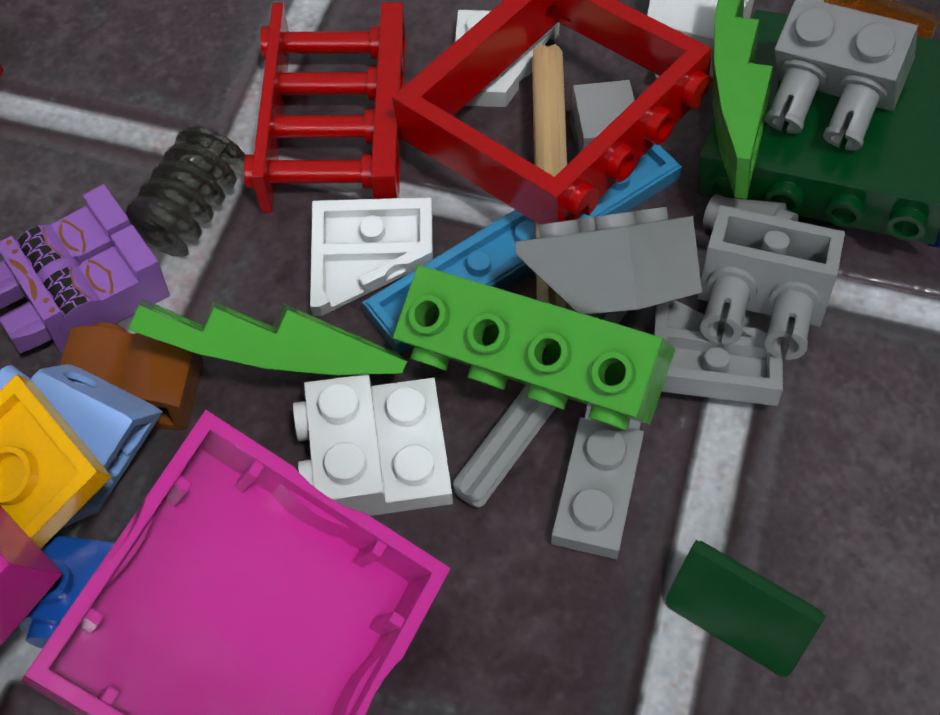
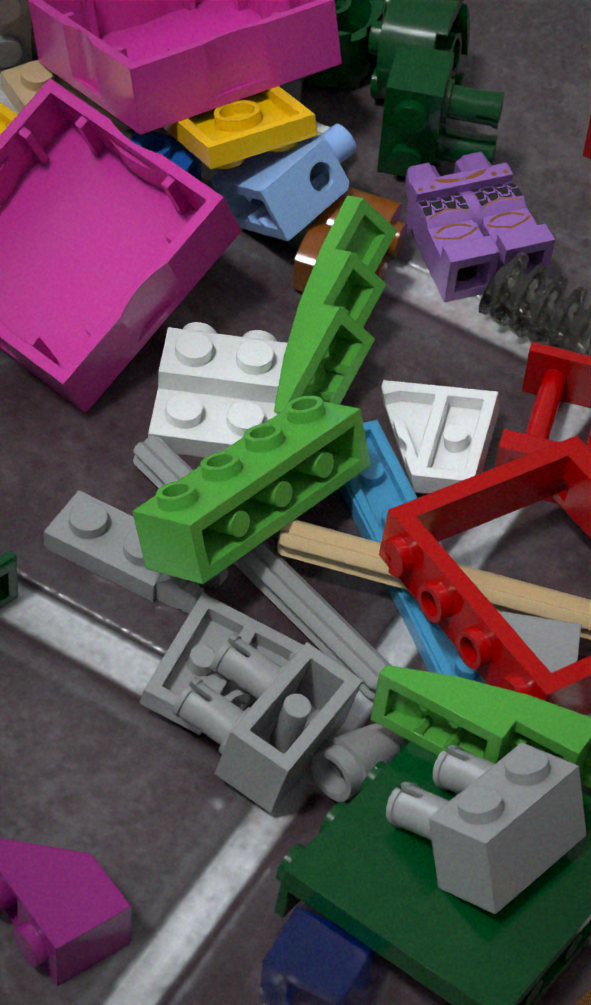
camera: 100 degrees right, 10 degrees down
(616, 260) = (310, 555): light grey slope -> none

